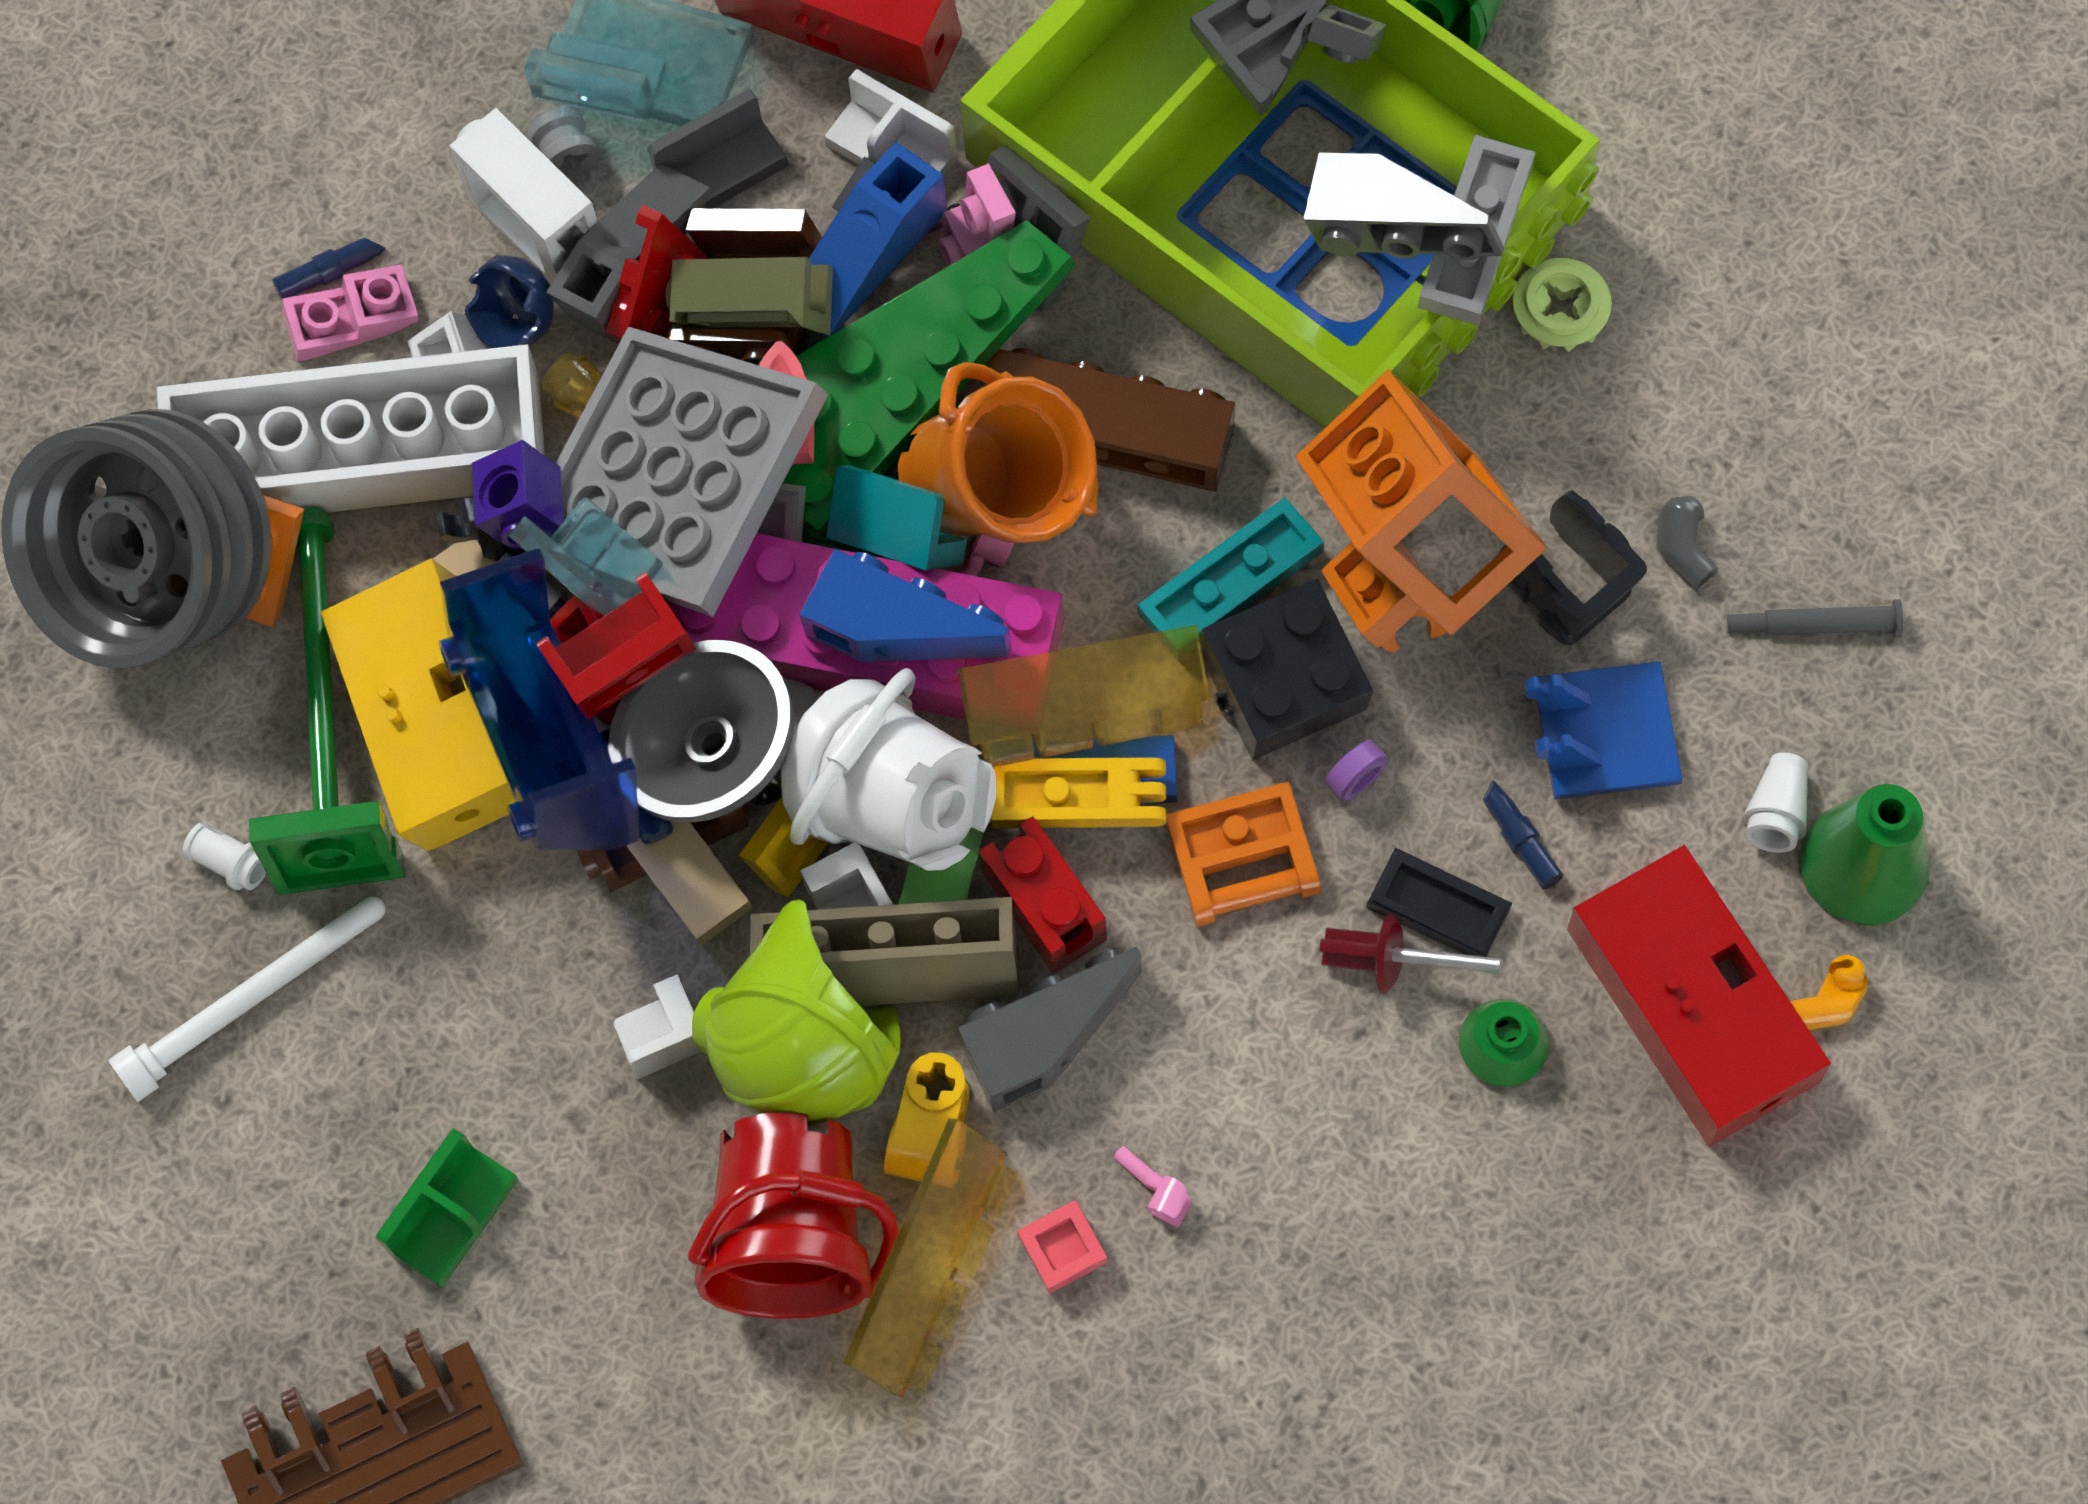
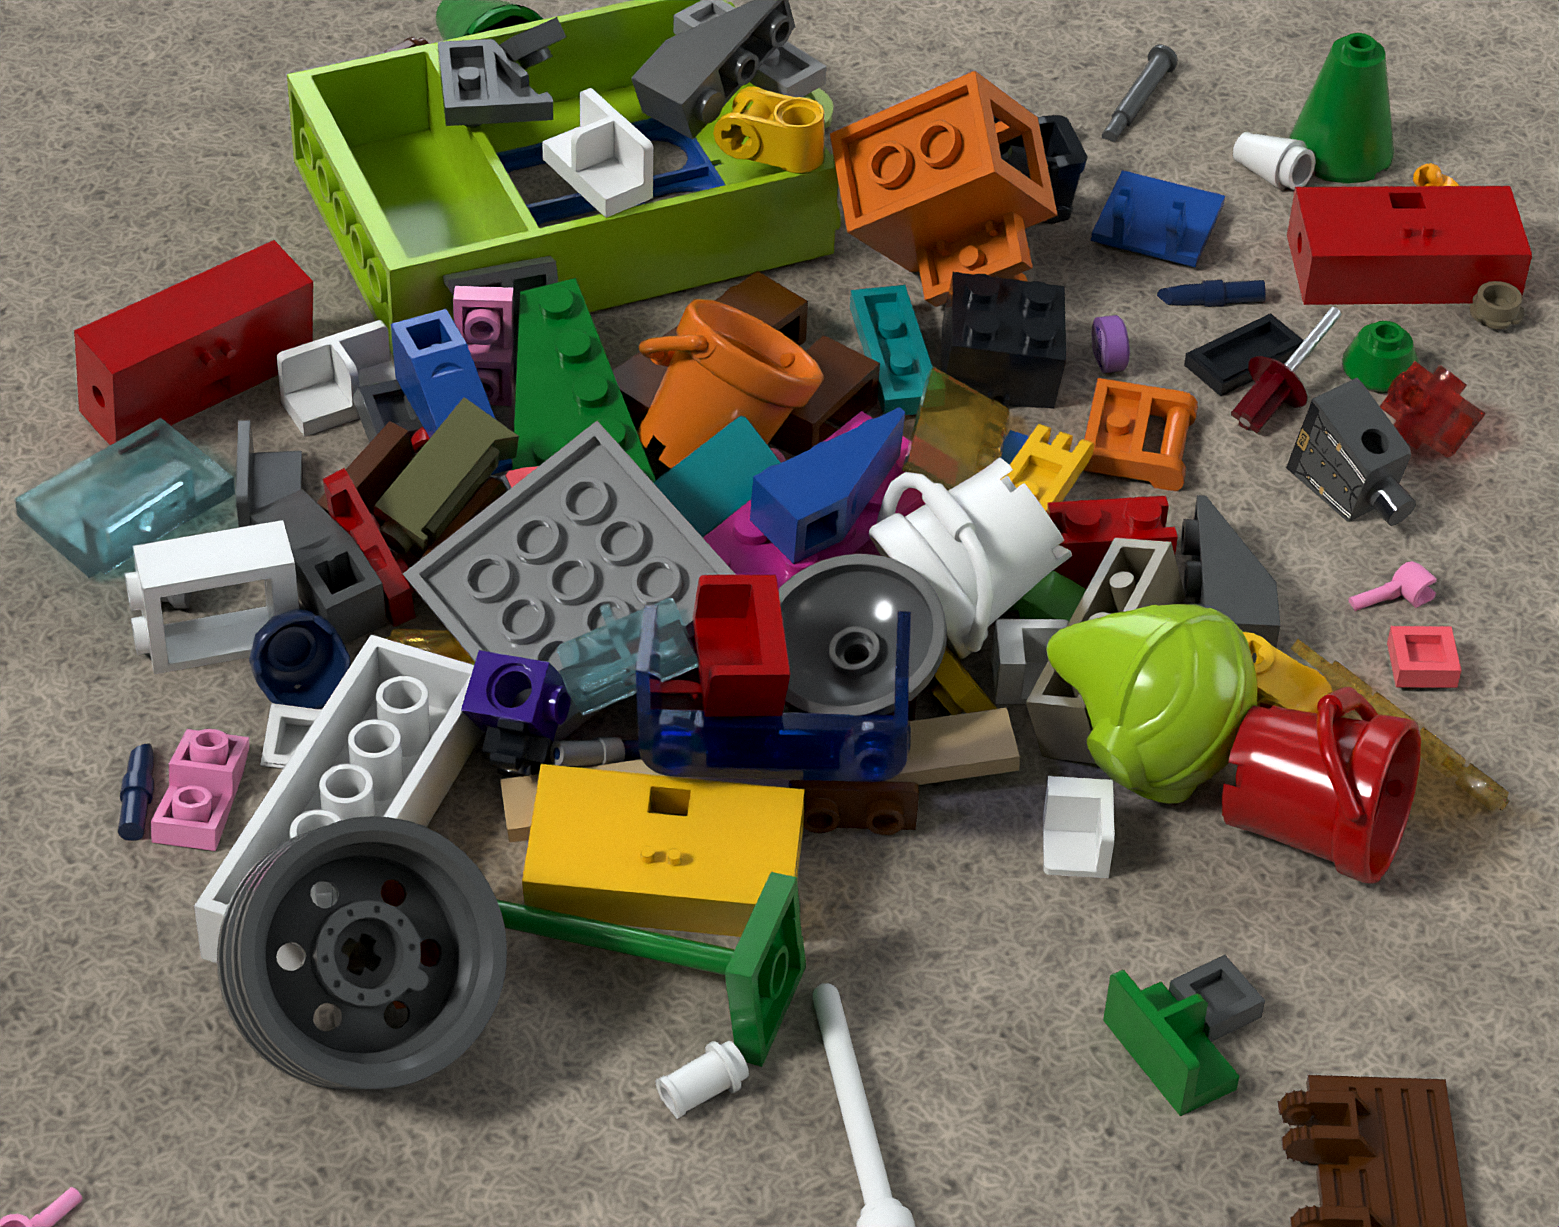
camera: 70 degrees left, 25 degrees down
(517, 1229) = (1228, 993): none -> dark grey plate
(1123, 539) = (847, 389): none -> reddish brown piece
(1207, 190) = (603, 157): none -> white panel
(1298, 1047) = (1353, 455): none -> dark grey torso
(1351, 308) = (779, 127): none -> yellow piece
(1425, 1118) = (1431, 409): none -> clear red brick
(1671, 1109) = (1497, 305): none -> dark tan plate

